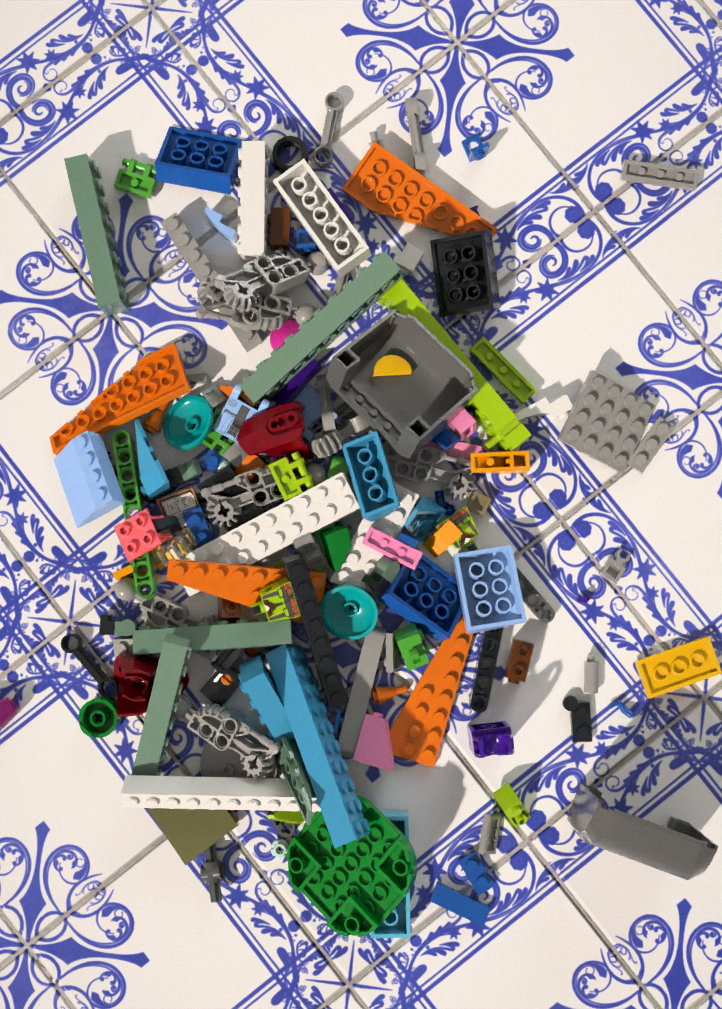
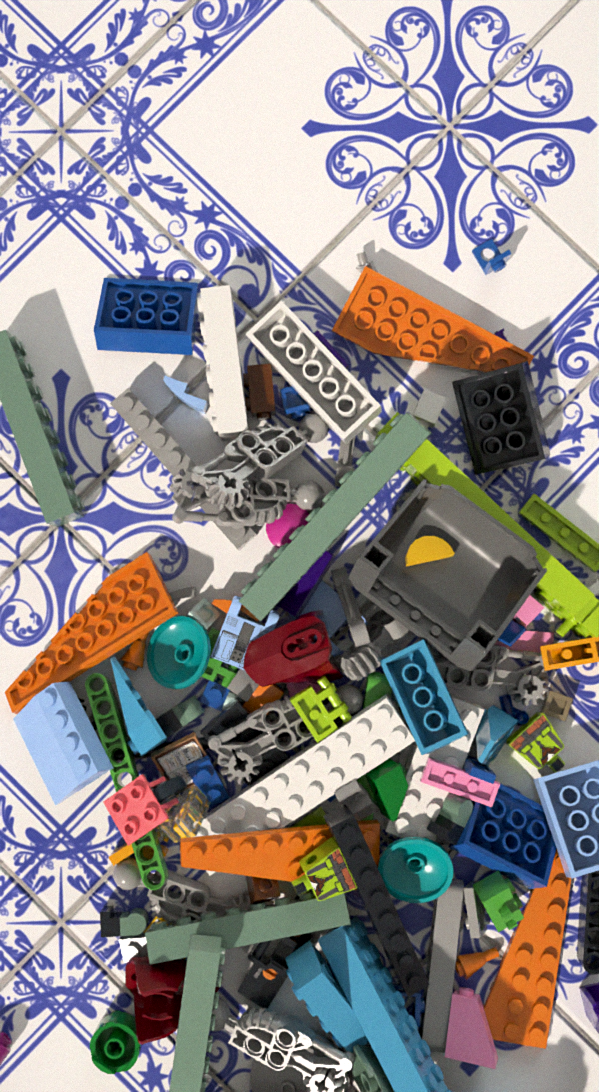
camera: 10 degrees left, 0 degrees up
(89, 664) = (94, 975): black piece -> none
(135, 183) = (69, 355): bright green plate -> none
(285, 142) = (255, 278): black tyre -> none
(328, 130) = (304, 256): light grey piece -> none
(412, 115) = (422, 276): light grey piece -> none
(443, 538) = (520, 758): light orange slope -> none

